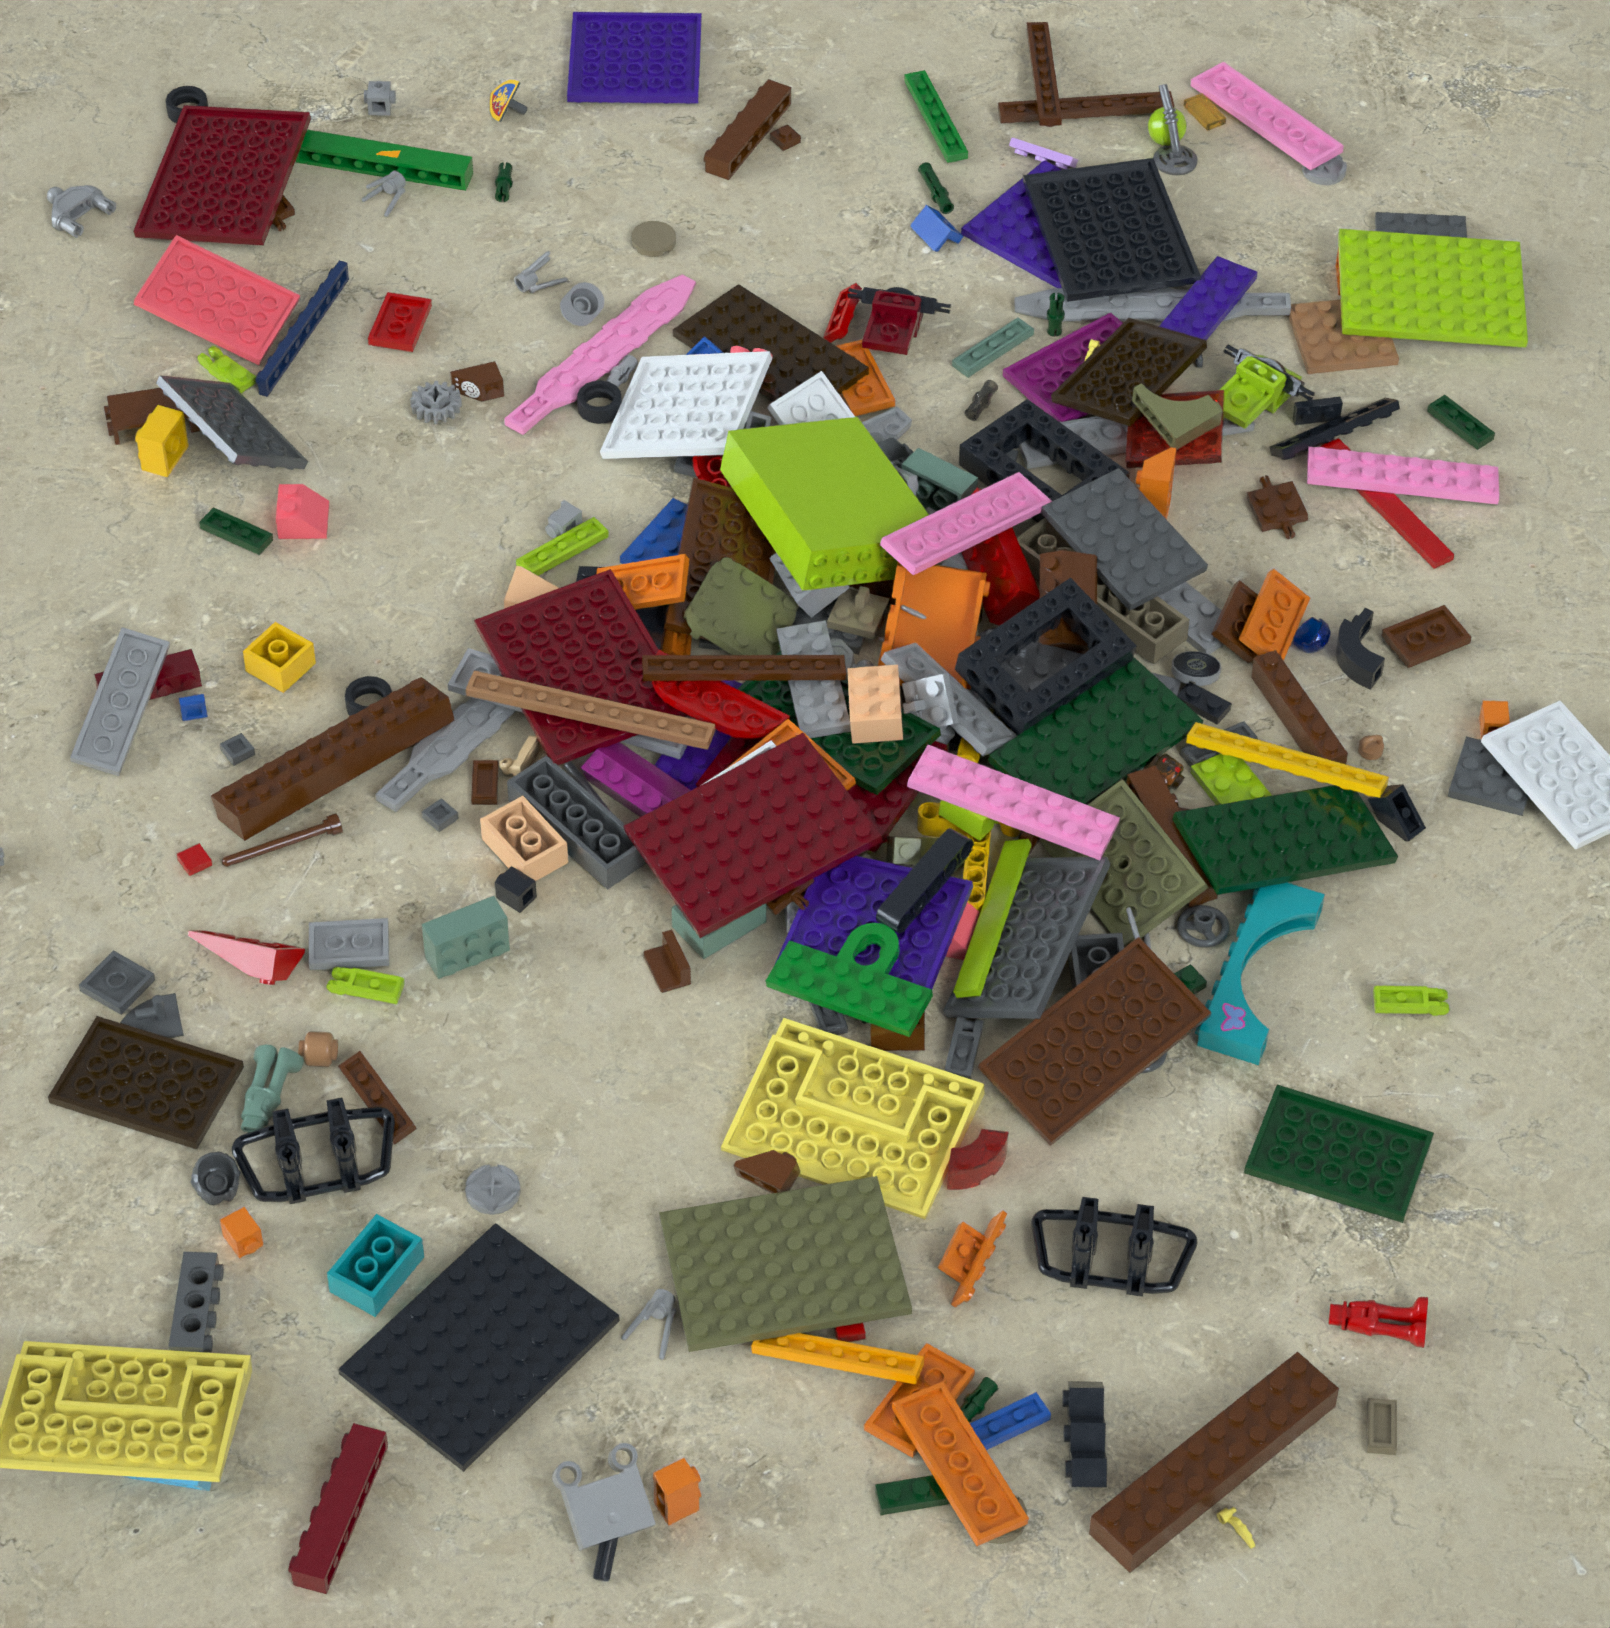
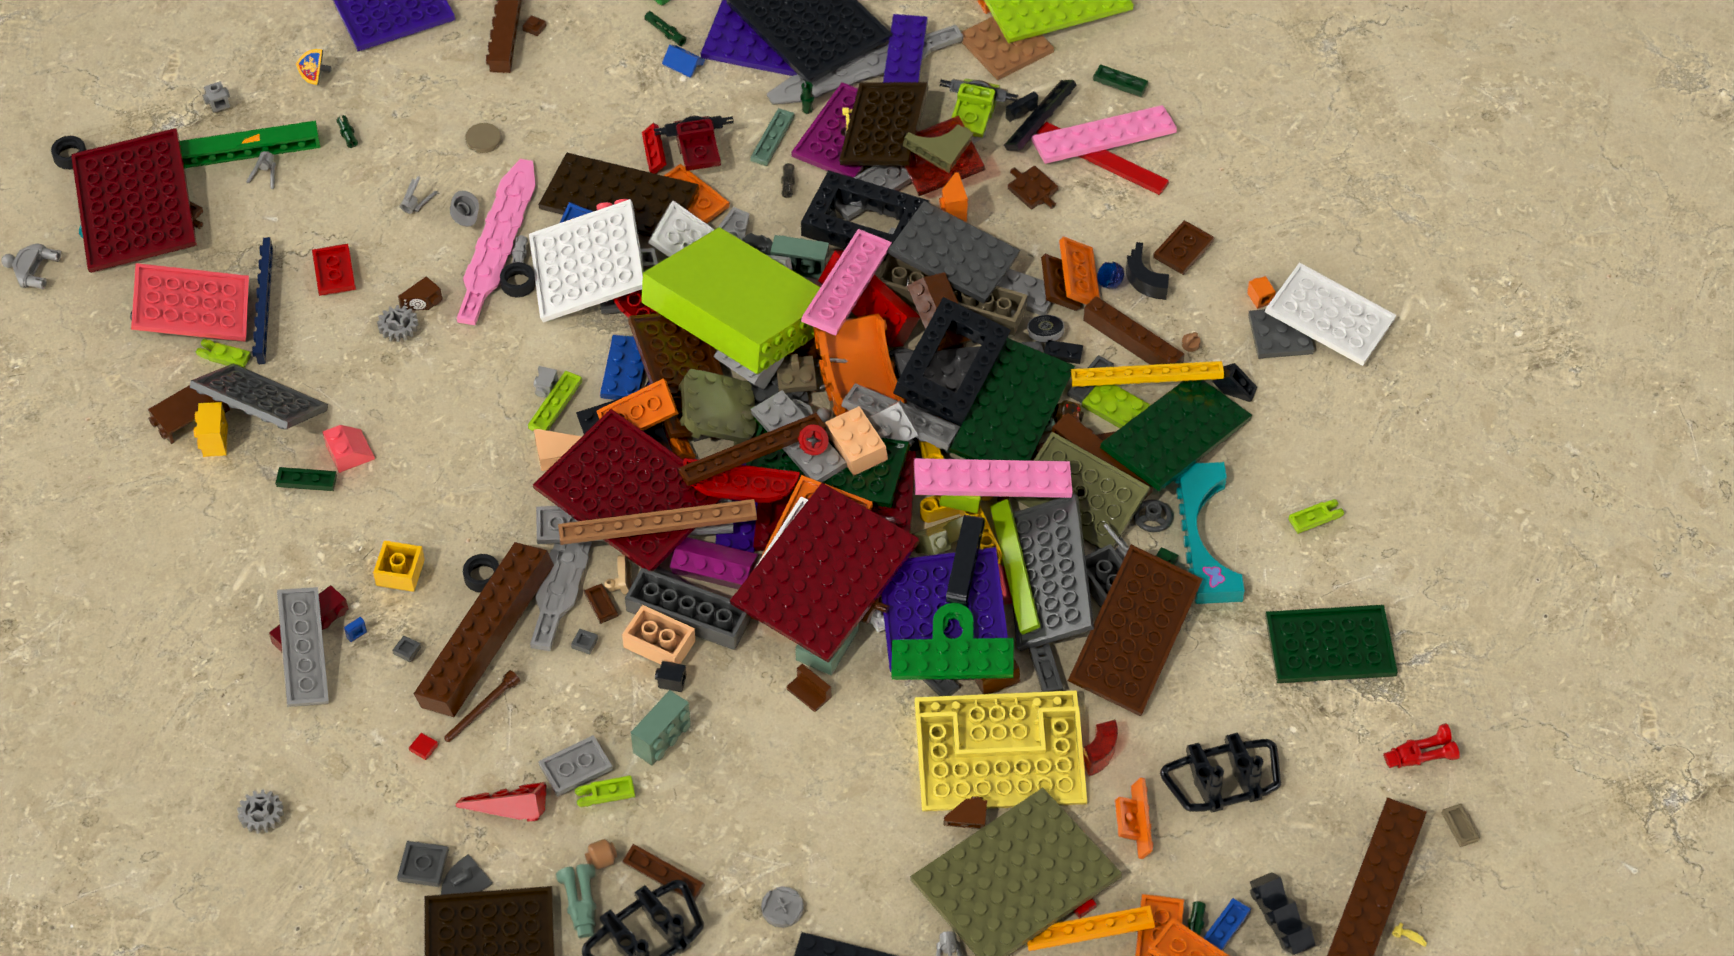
camera: 25 degrees left, 5 degrees up
(832, 677) = (819, 434): none -> red gear

